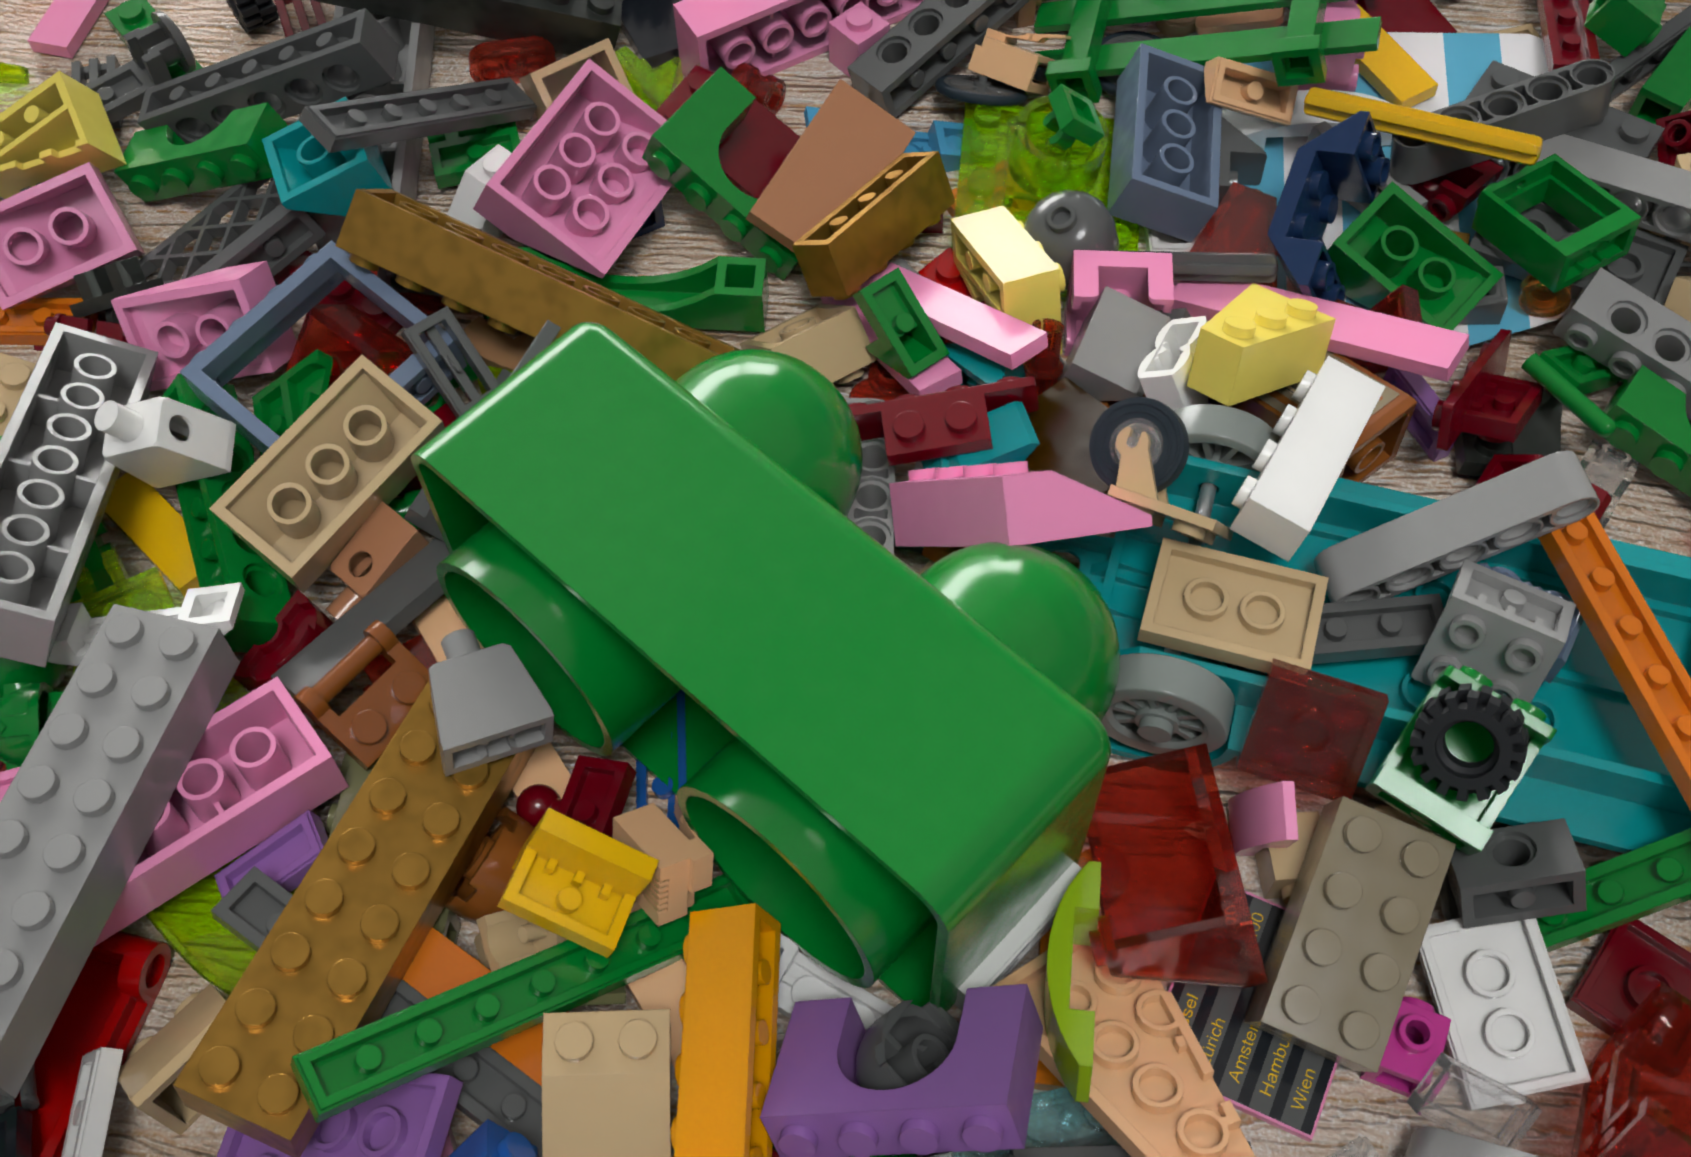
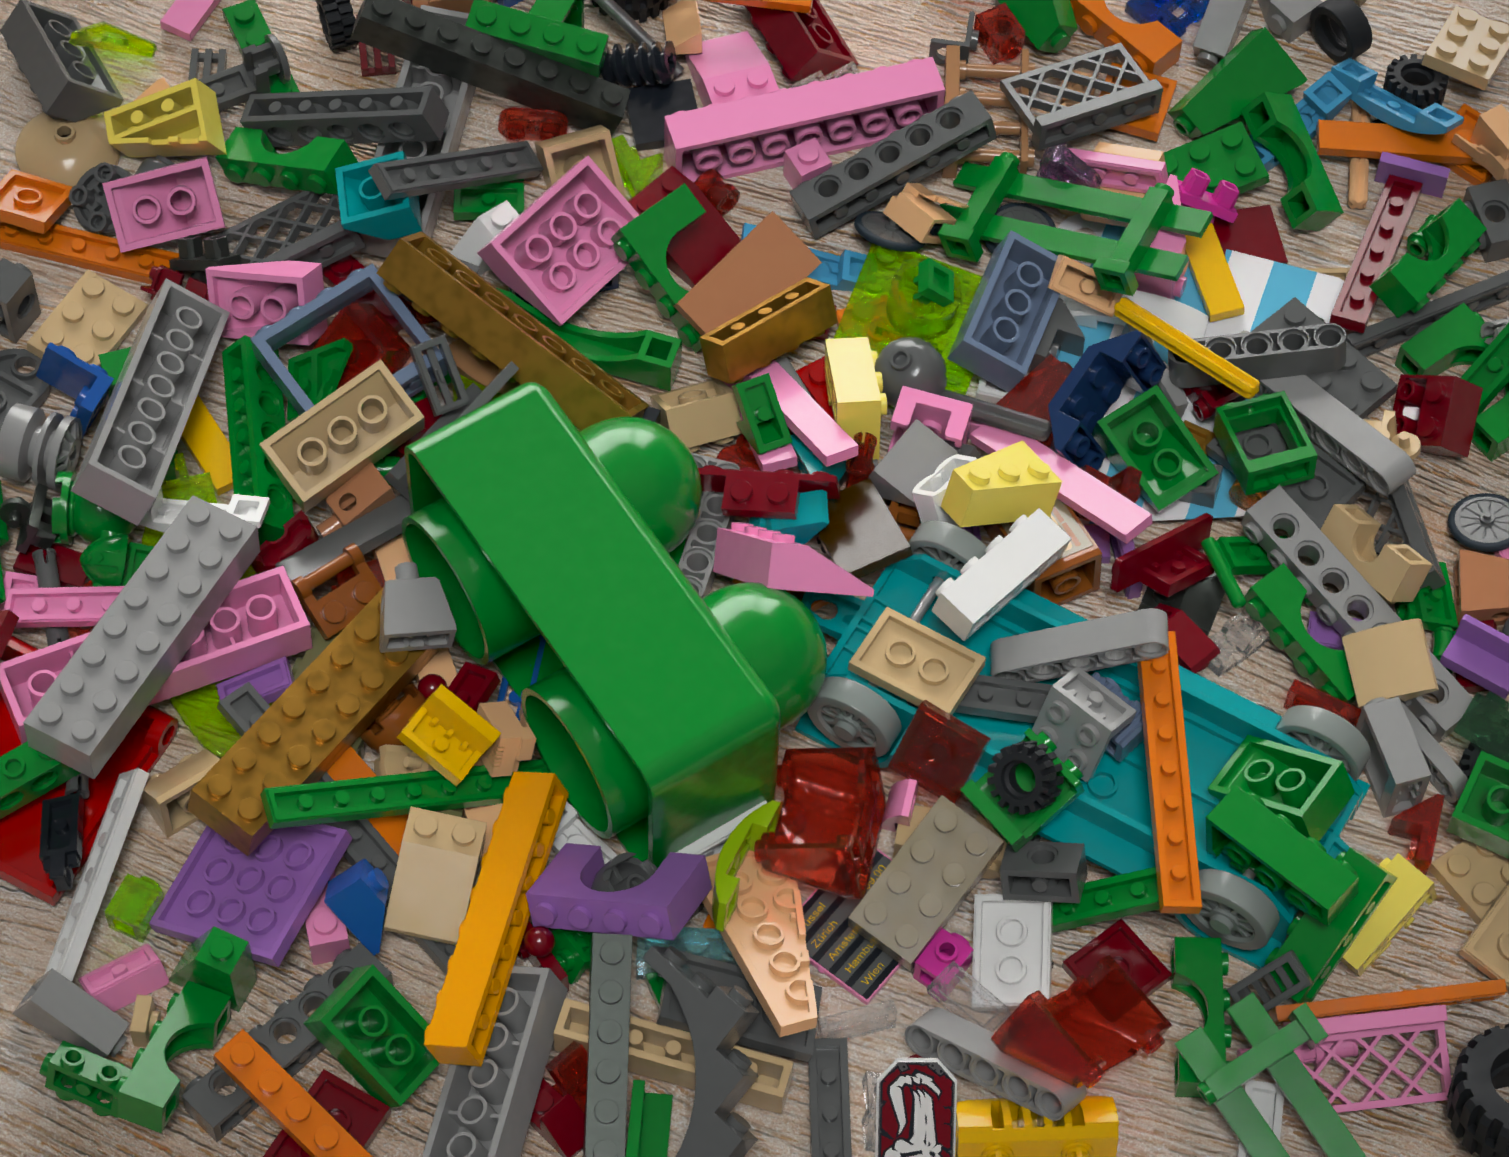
camera: 10 degrees right, 0 degrees up
(165, 440) = (223, 387): white torso -> none
(1141, 451) = (887, 546): plate -> none

